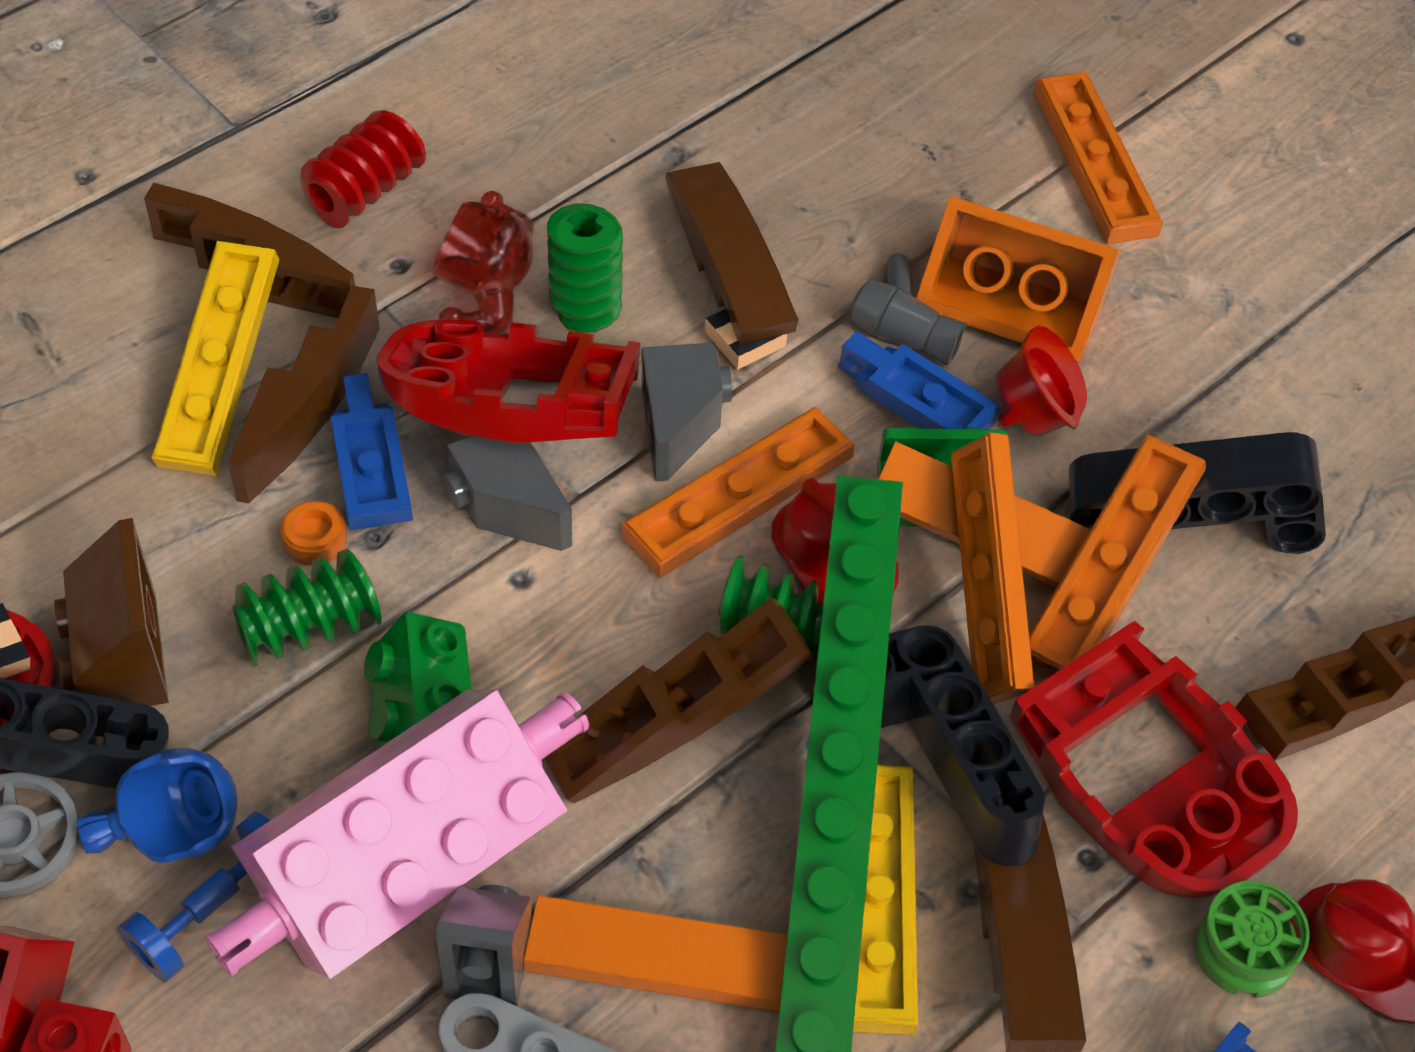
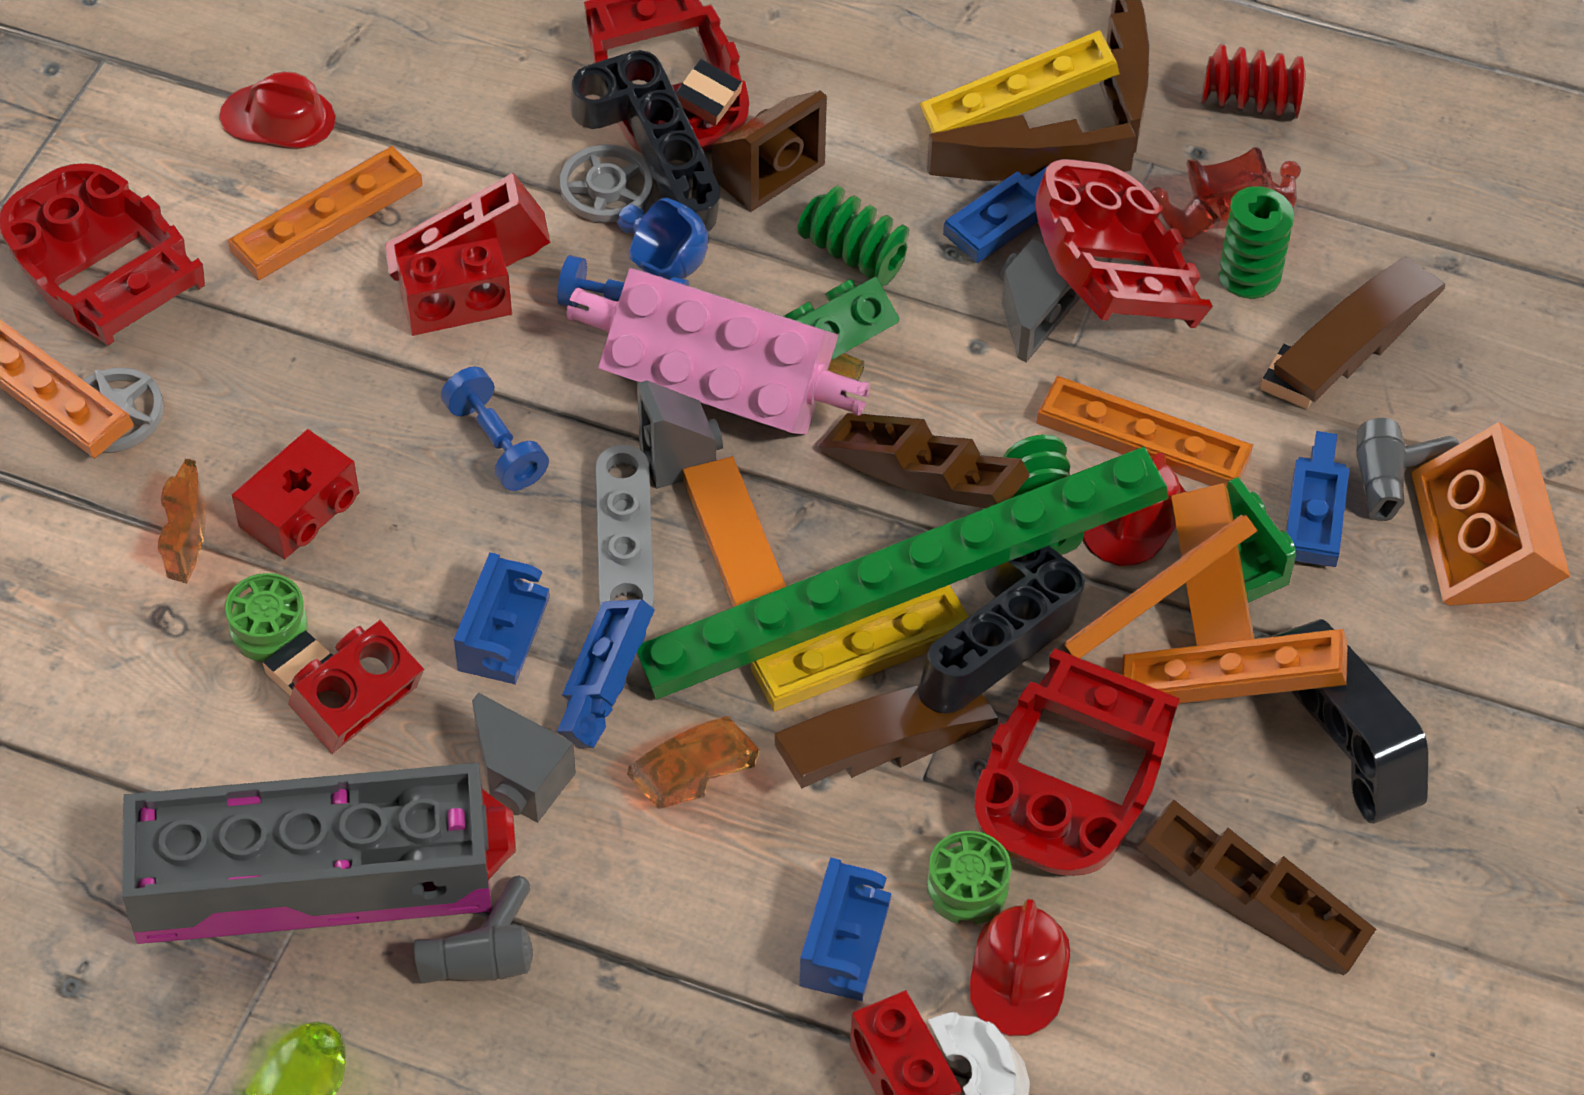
camera: 65 degrees right, 0 degrees up
(313, 532) = (926, 216): orange tile -> none
(682, 401) = (1185, 360): dark grey slope -> none
(1041, 385) = (1389, 575): red piece -> none

